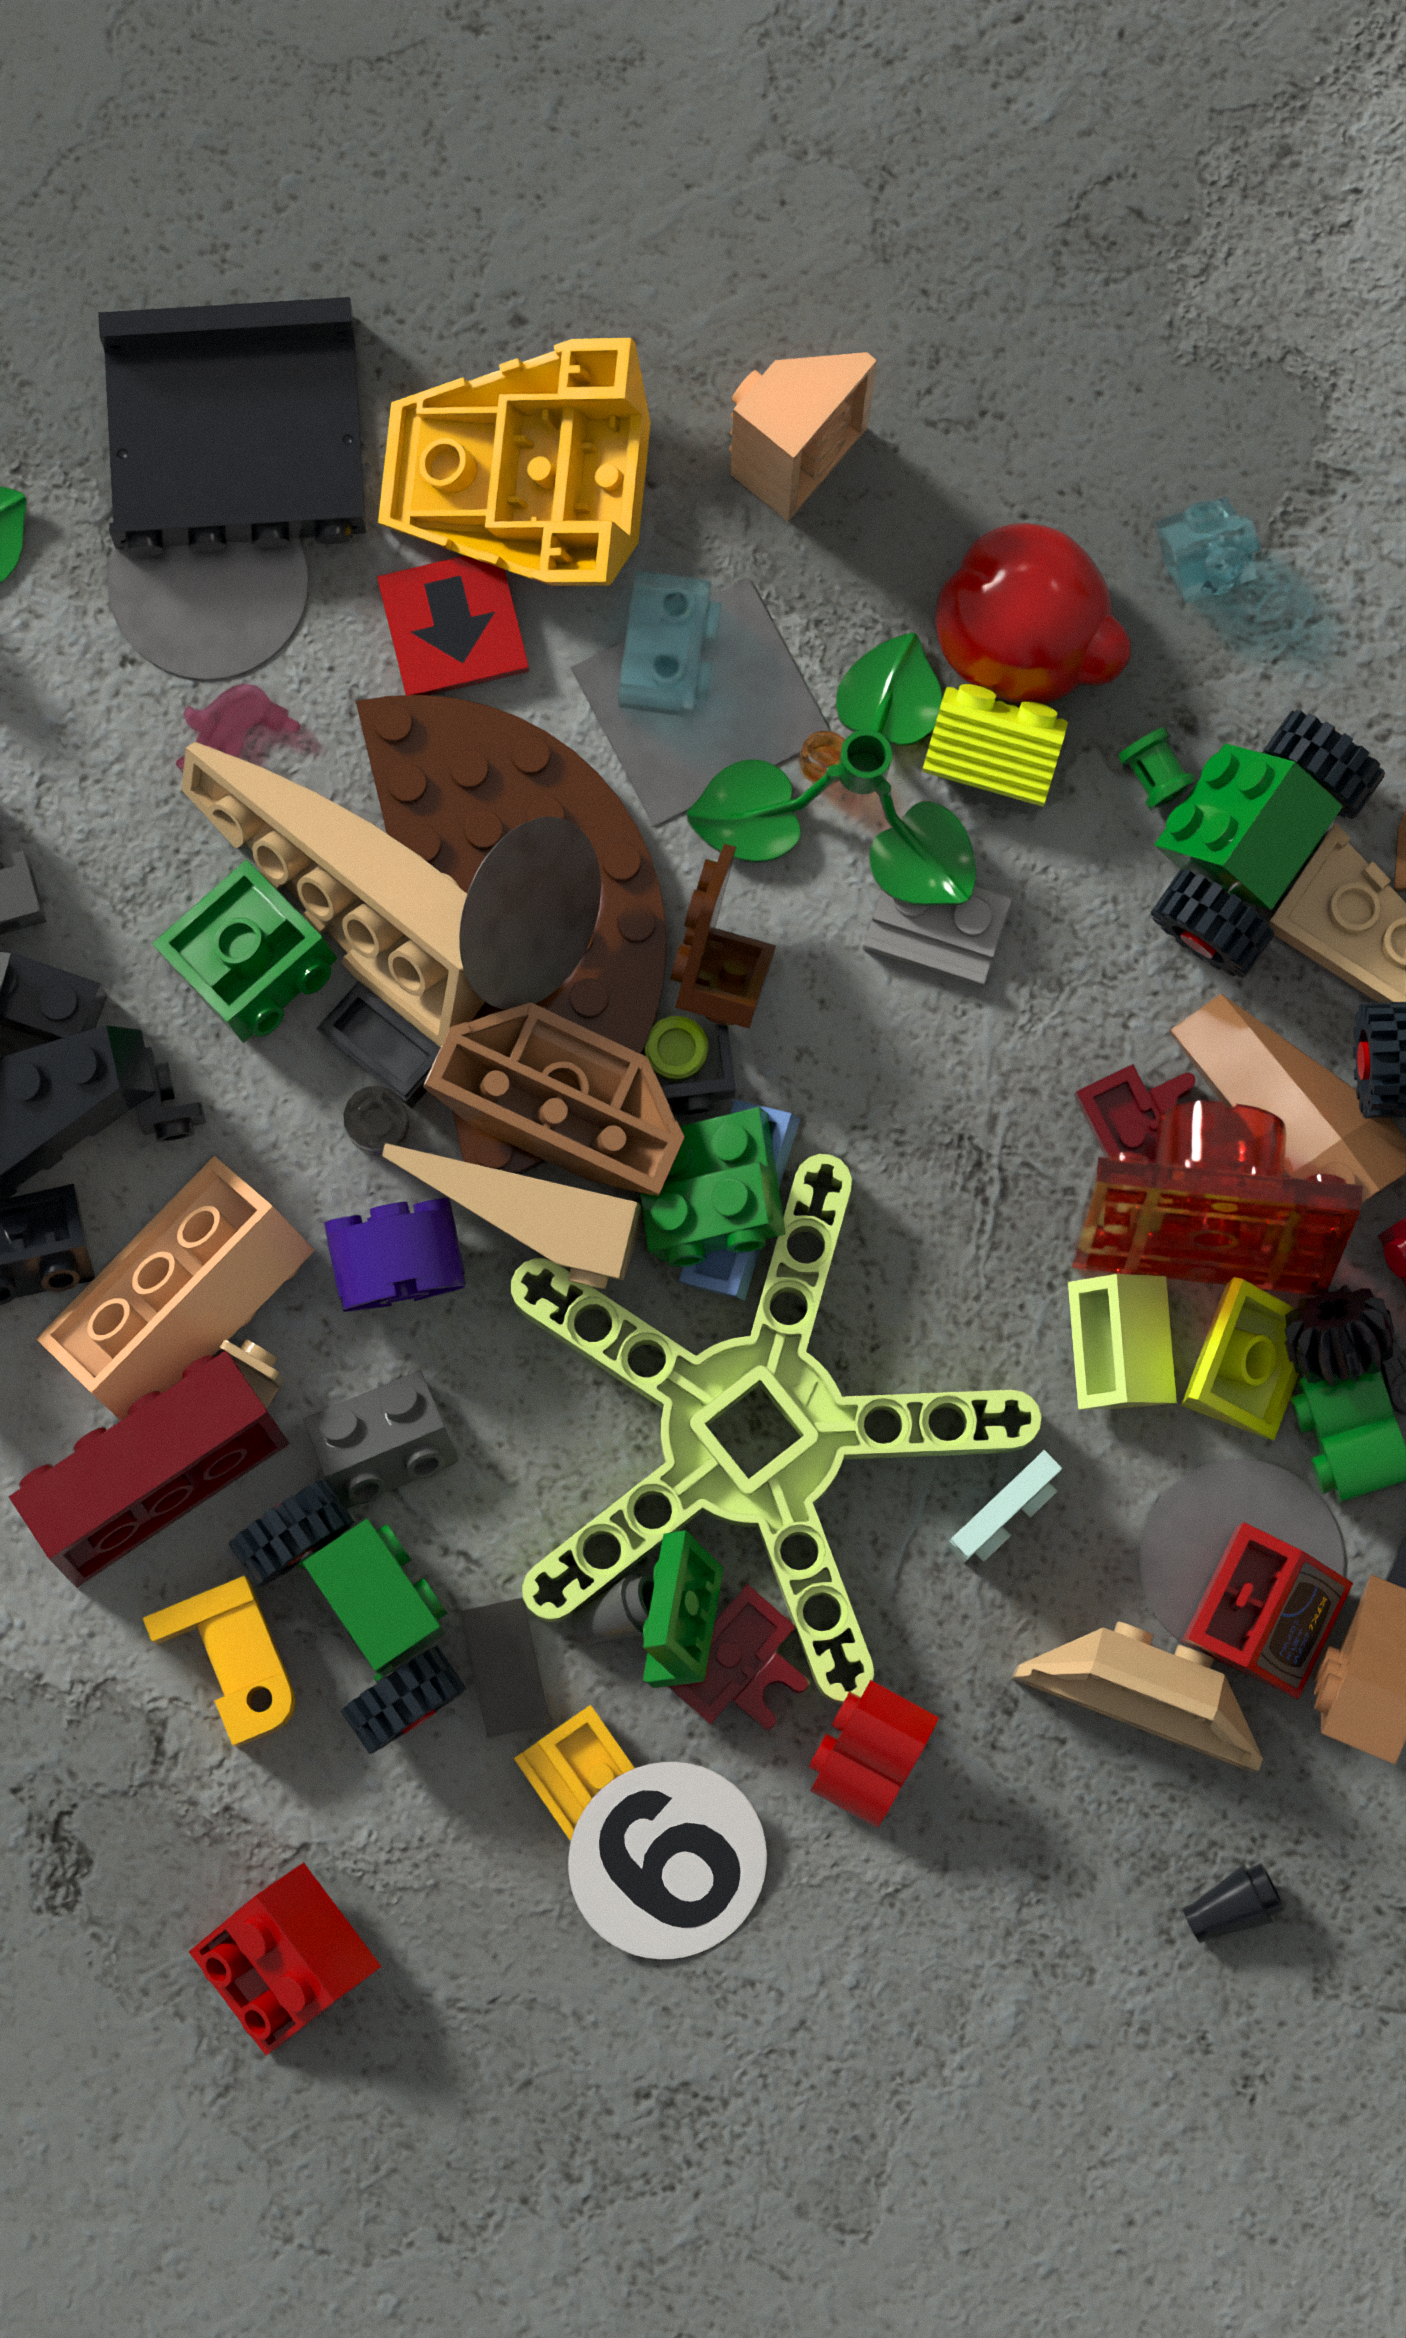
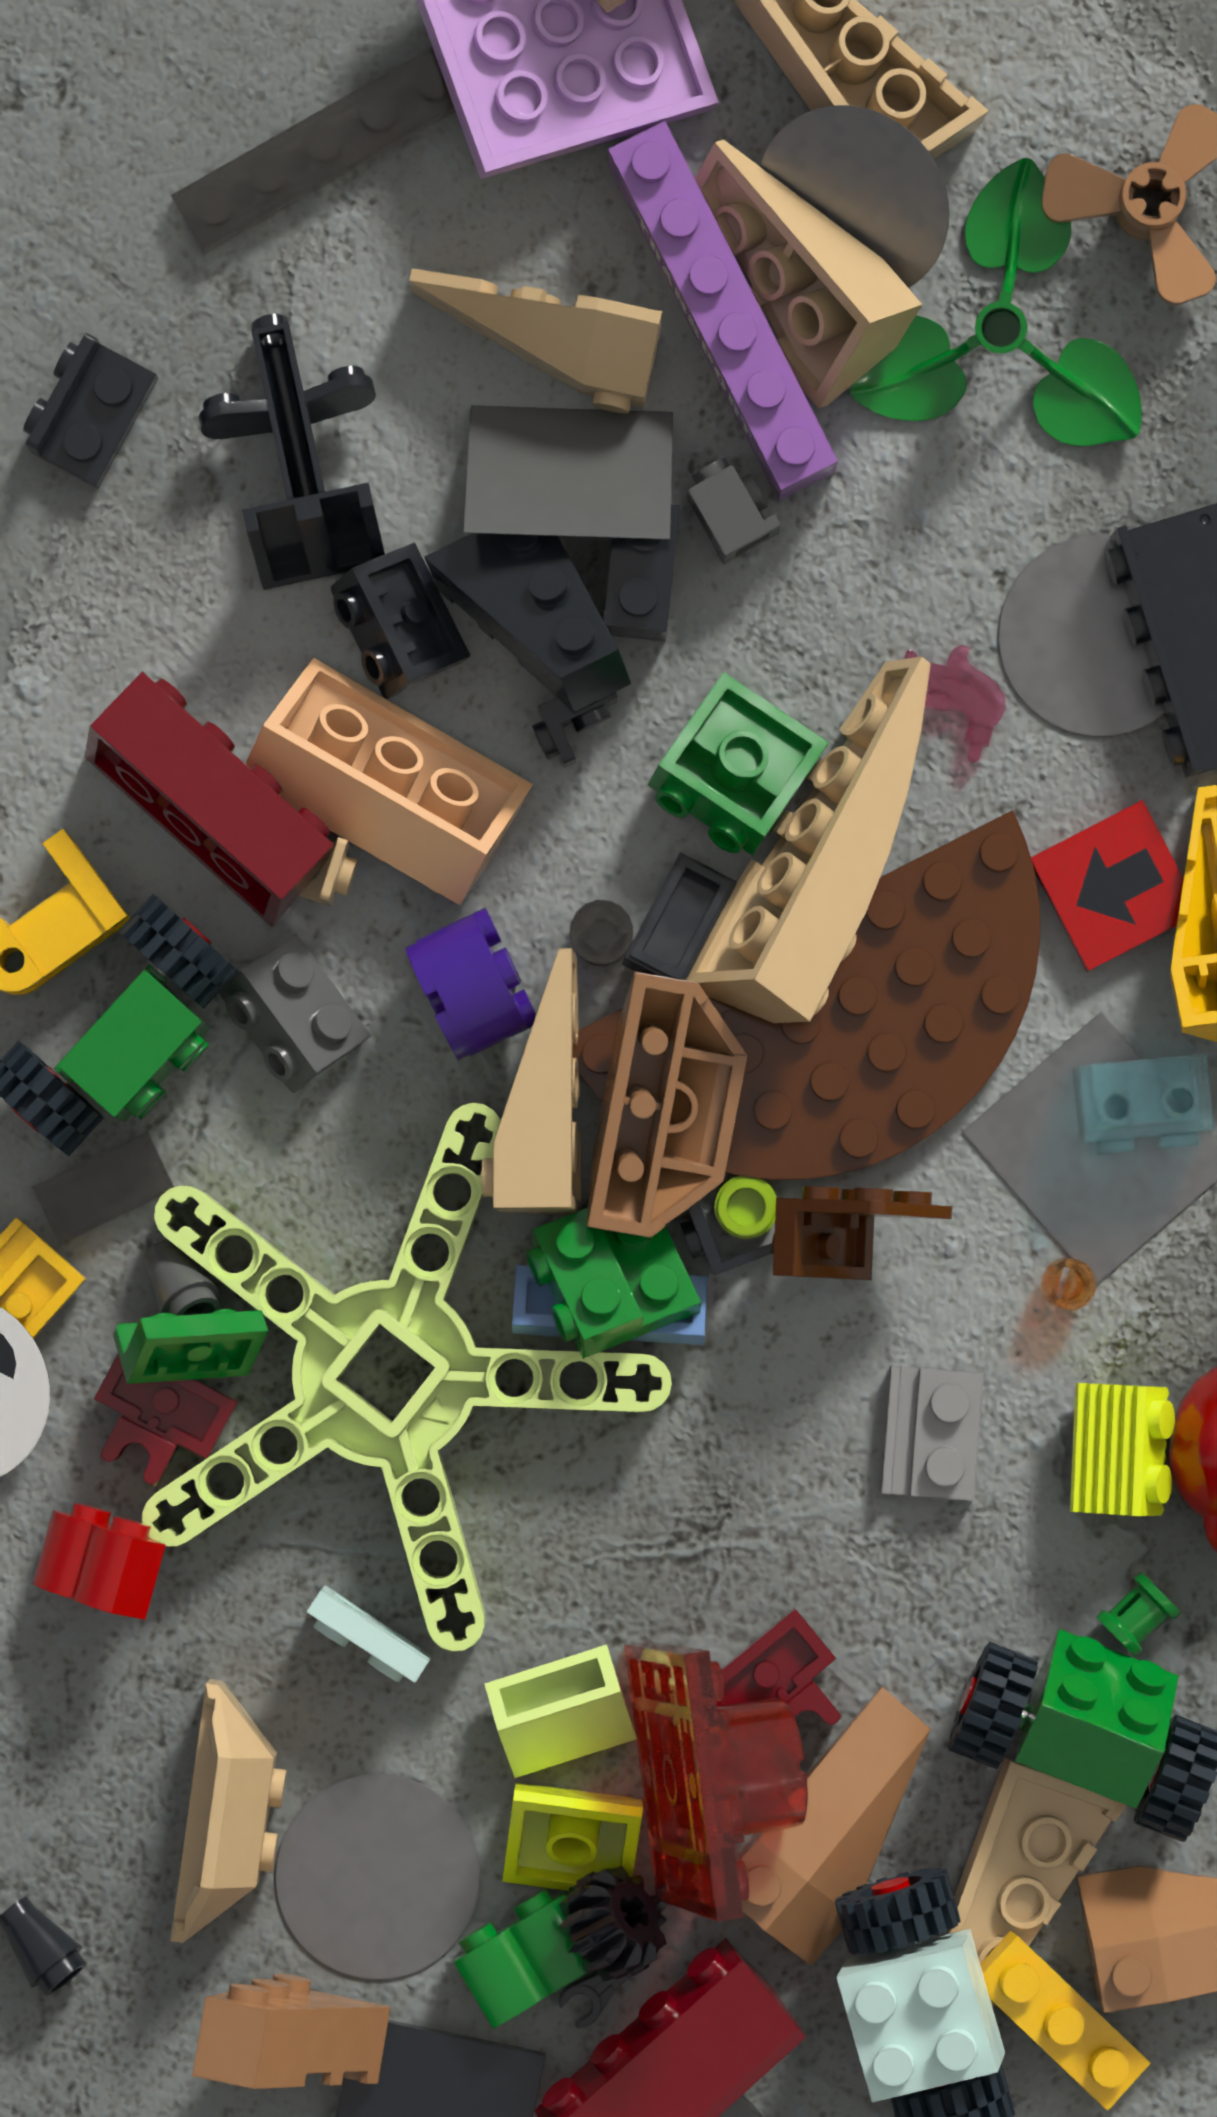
camera: 75 degrees right, 5 degrees up
(530, 912) = (832, 1033): flat silver sticker -> none
(884, 701) = (987, 1400): green plant -> none
(1267, 1610) = (329, 1913): red slope -> none

